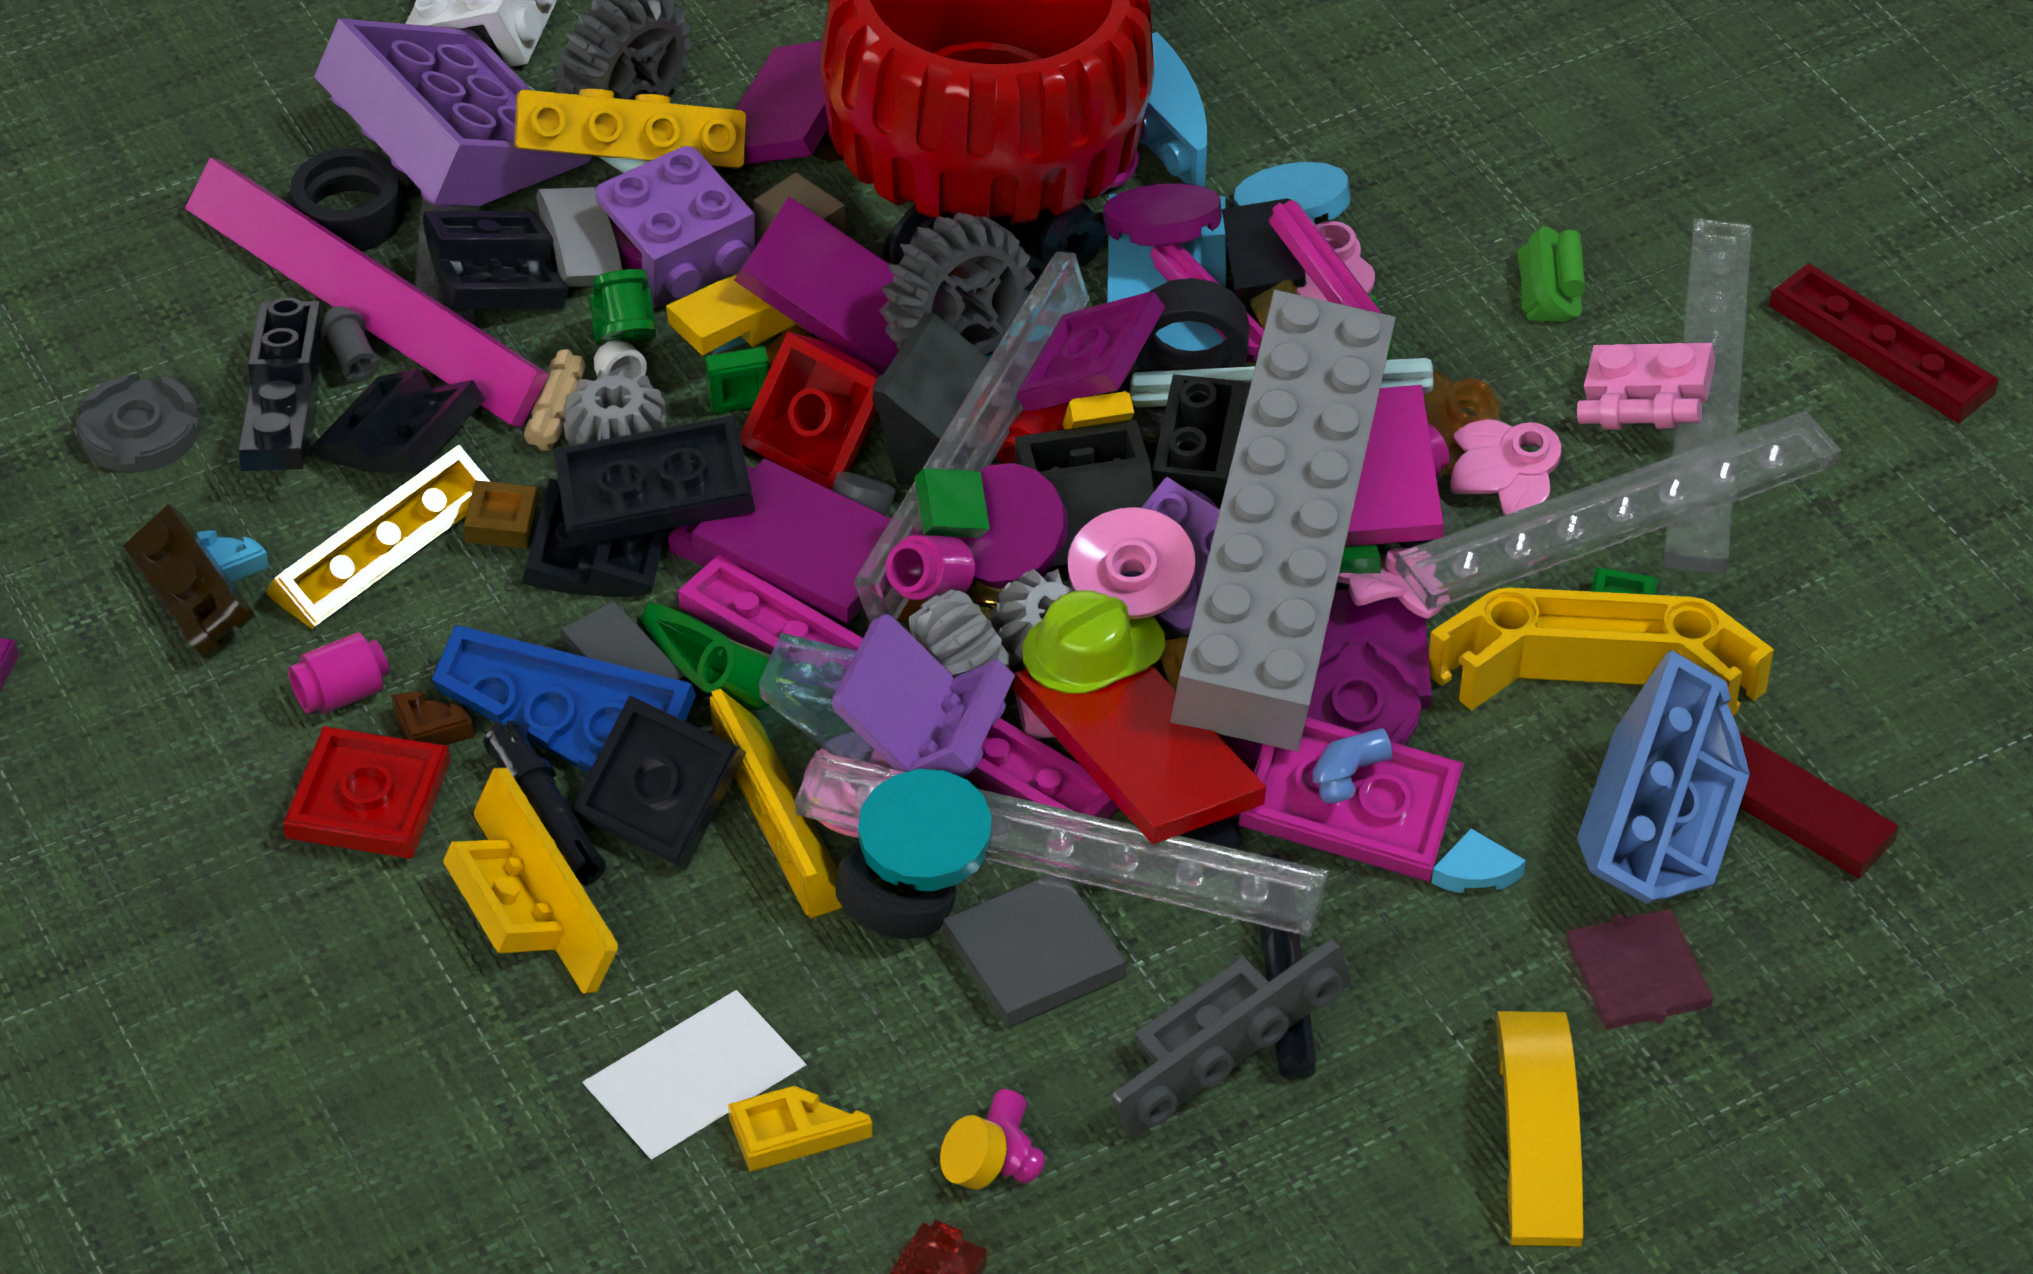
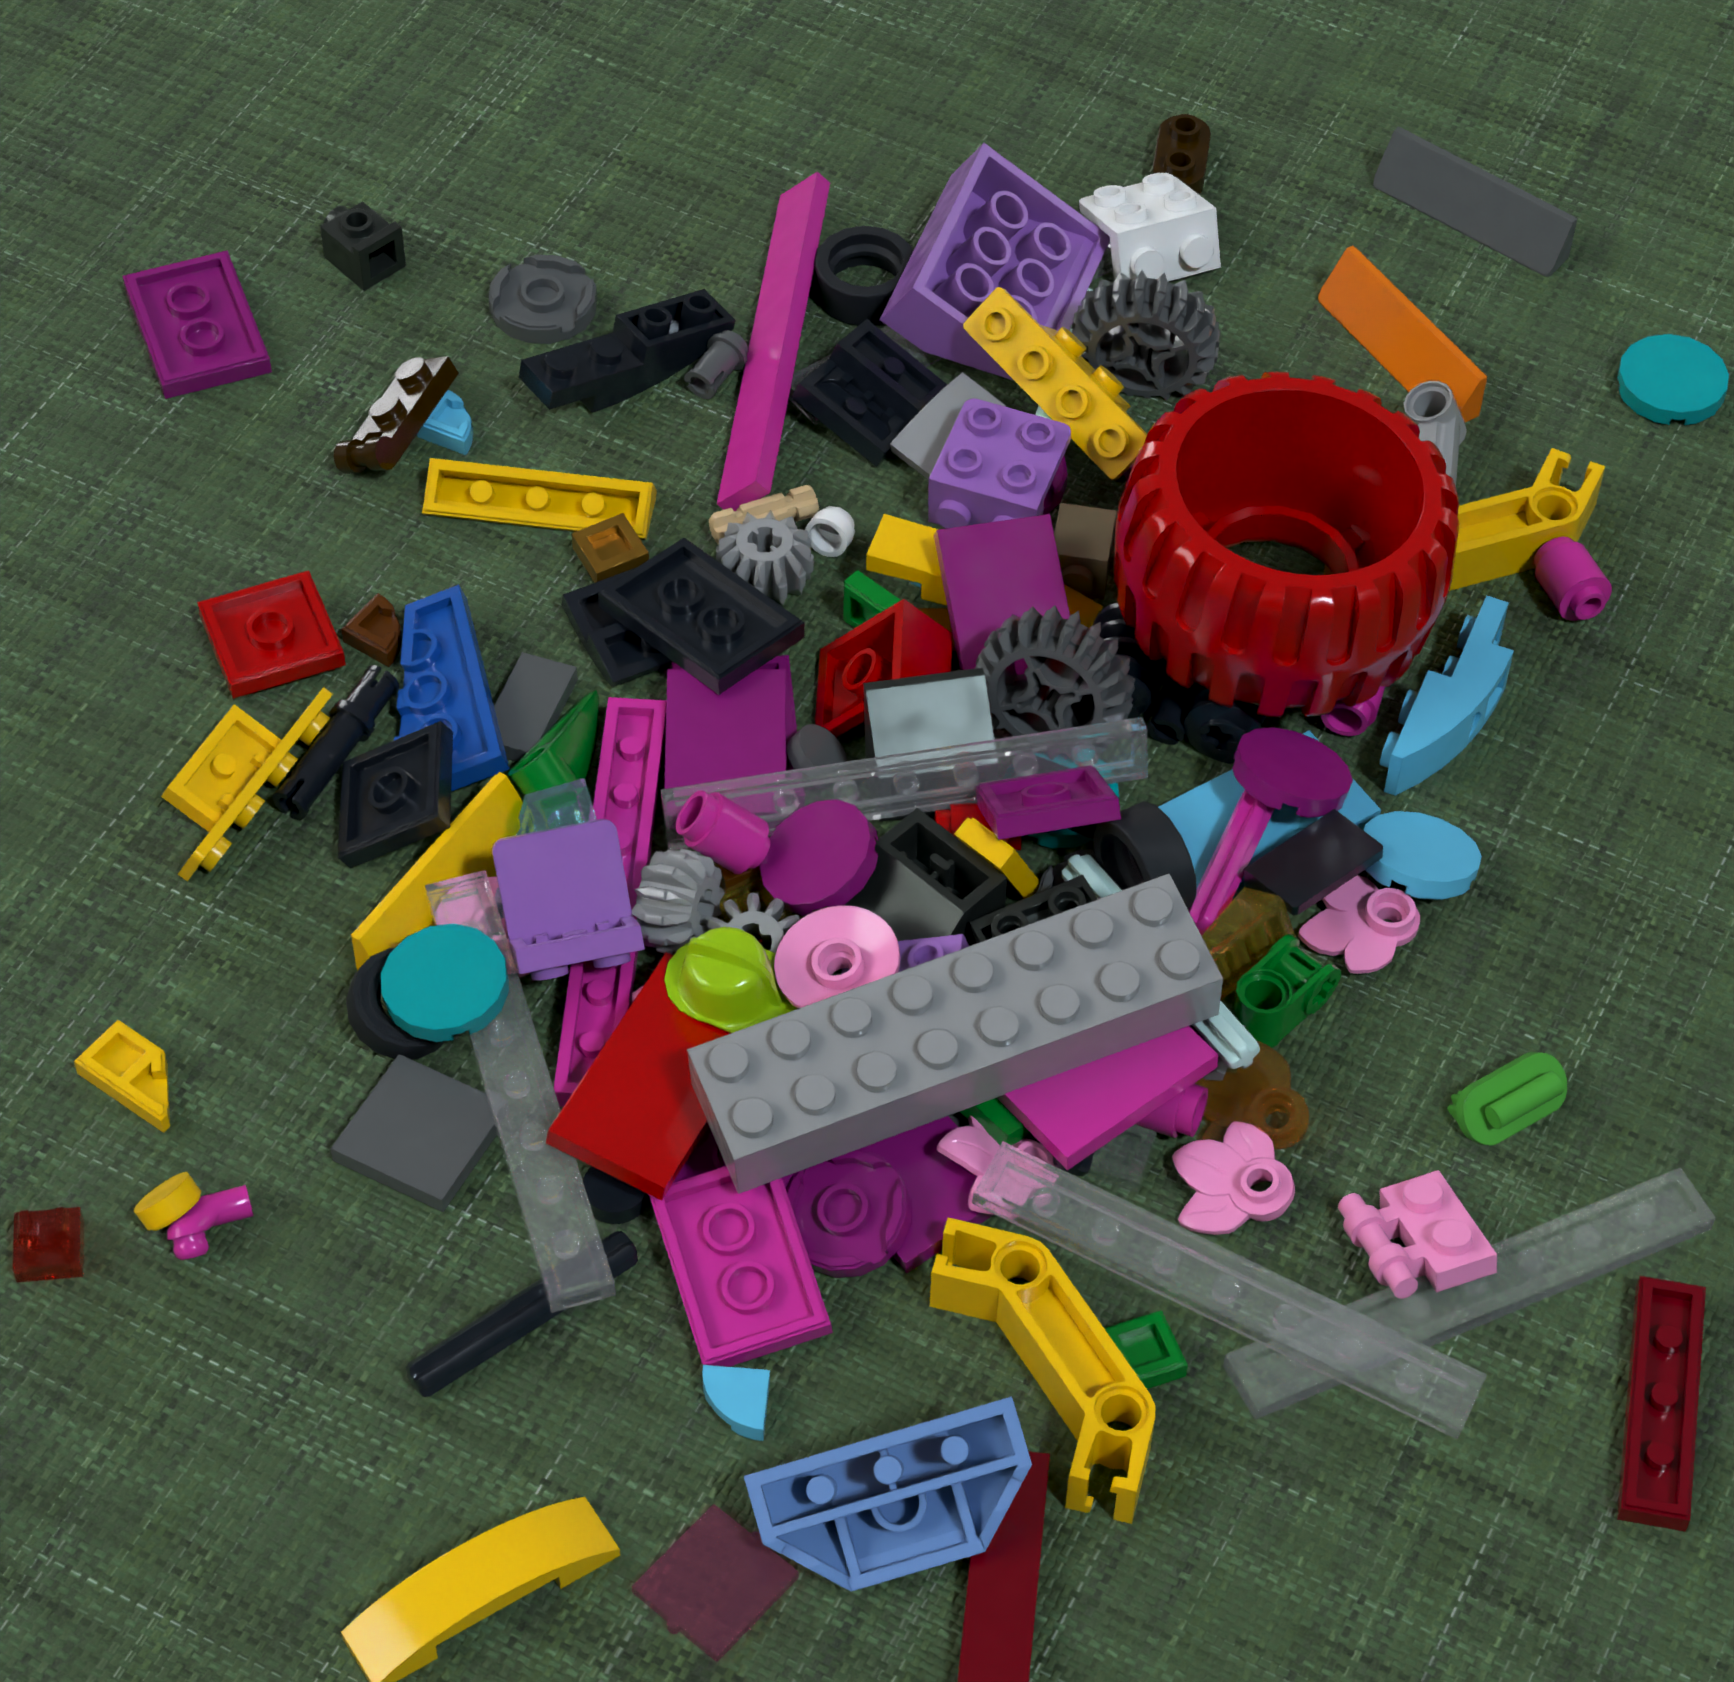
camera: 55 degrees right, 5 degrees up
(338, 674) = (369, 549): dark pink brick -> none
(398, 423) = (655, 438): black slope -> none
(622, 306) = (870, 492): green piece -> none
(693, 1074) = (149, 986): white sticker -> none
(952, 503) = (791, 803): green tile -> none
(1219, 1028) = (396, 1297): dark grey bracket -> none
(1318, 257) = (1307, 914): dark pink axle -> none
(1343, 758) = (744, 1226): medium blue arm -> none

